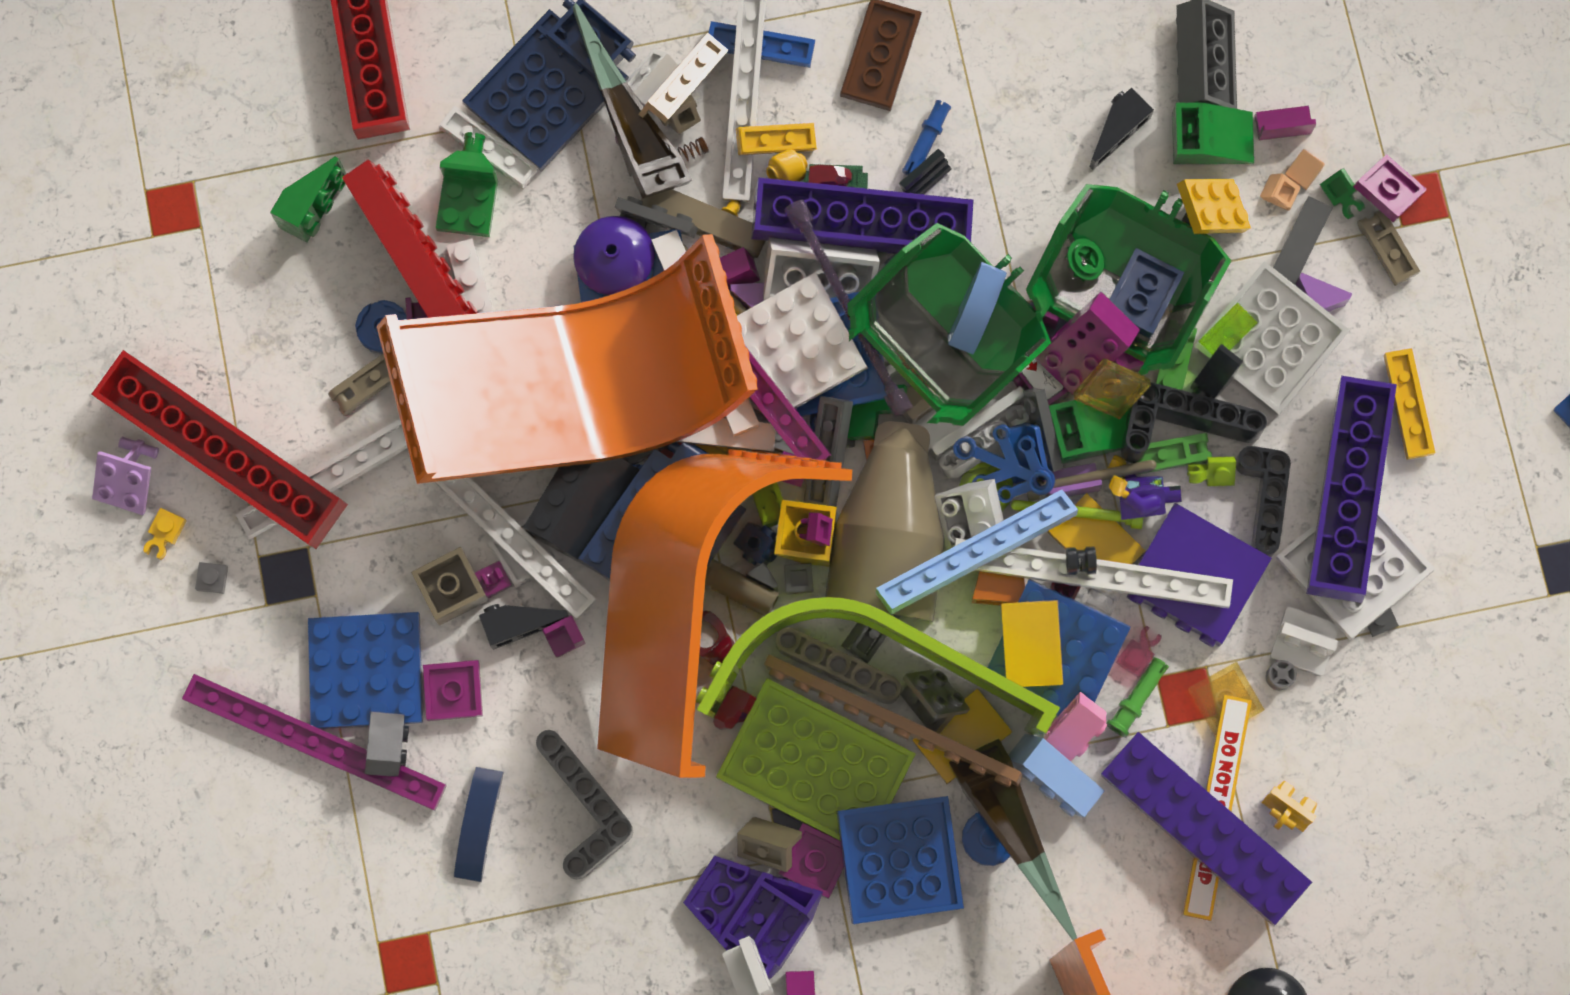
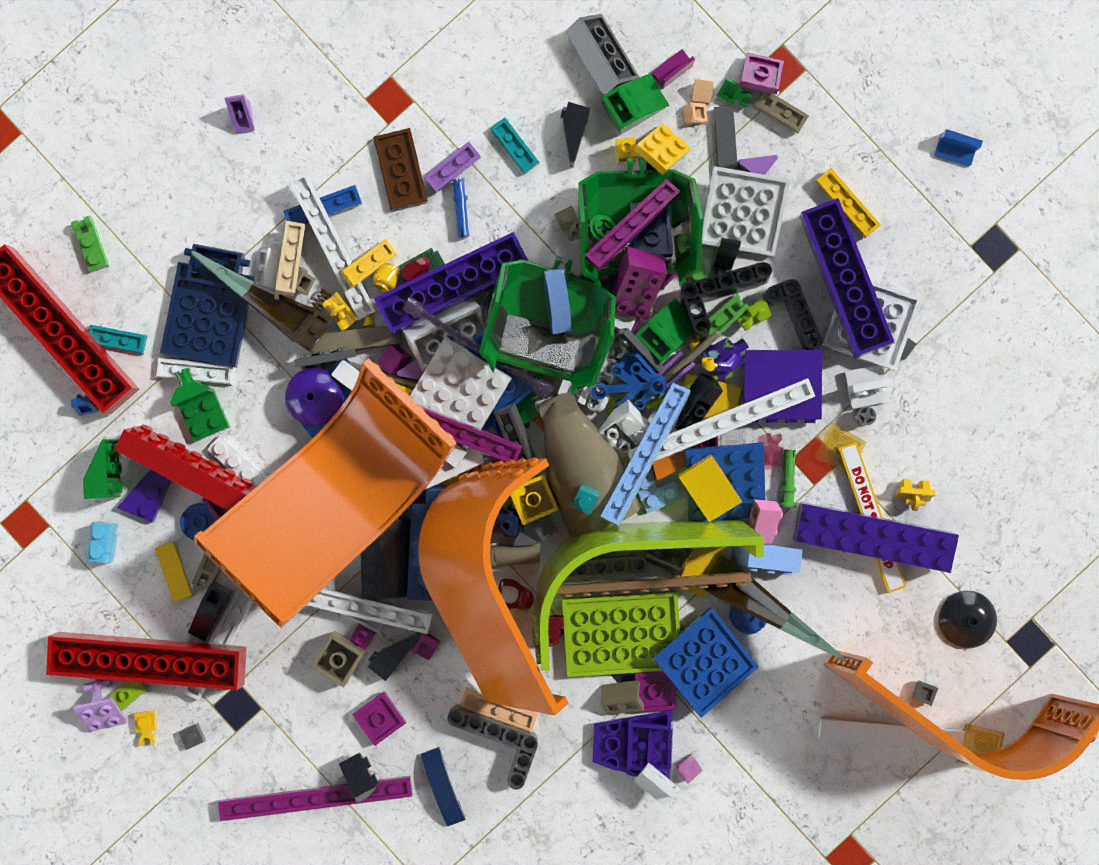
camera: 30 degrees left, 10 degrees up
(171, 479) = (128, 694): none -> lime plate
(253, 280) = (102, 542): none -> medium azure brick
(315, 367) = (174, 571): none -> yellow tile
(328, 437) = (209, 610): none -> black slope
(334, 110) = (83, 405): none -> blue tile
(342, 258) = (146, 496): none -> dark purple wing
(364, 668) = (319, 736): blue plate -> none
(422, 58) = (119, 339): none -> teal tile
(605, 770) = (519, 718): none -> light nougat tile
(706, 175) = (340, 311): none -> yellow hips
(818, 529) = (541, 496): magenta tile -> none
(871, 557) = (585, 499): none -> teal brick
(926, 174) = (474, 231): black tile -> none
(945, 86) = (452, 167): none -> medium lavender plate
(956, 622) = (656, 498): none -> light blue plate
(1036, 104) = (514, 145): none -> teal tile
(1044, 227) = (568, 221): none -> dark tan plate
(1084, 530) = (703, 395): none -> black slope
(1087, 561) = (712, 422): black wheel -> none
(1111, 388) = (668, 302): clear yellow tile -> none
(1122, 271) = (632, 224): none -> magenta plate
(1167, 180) = (625, 148): none -> yellow brick
(1229, 329) = (716, 223): clear neon green panel -> none

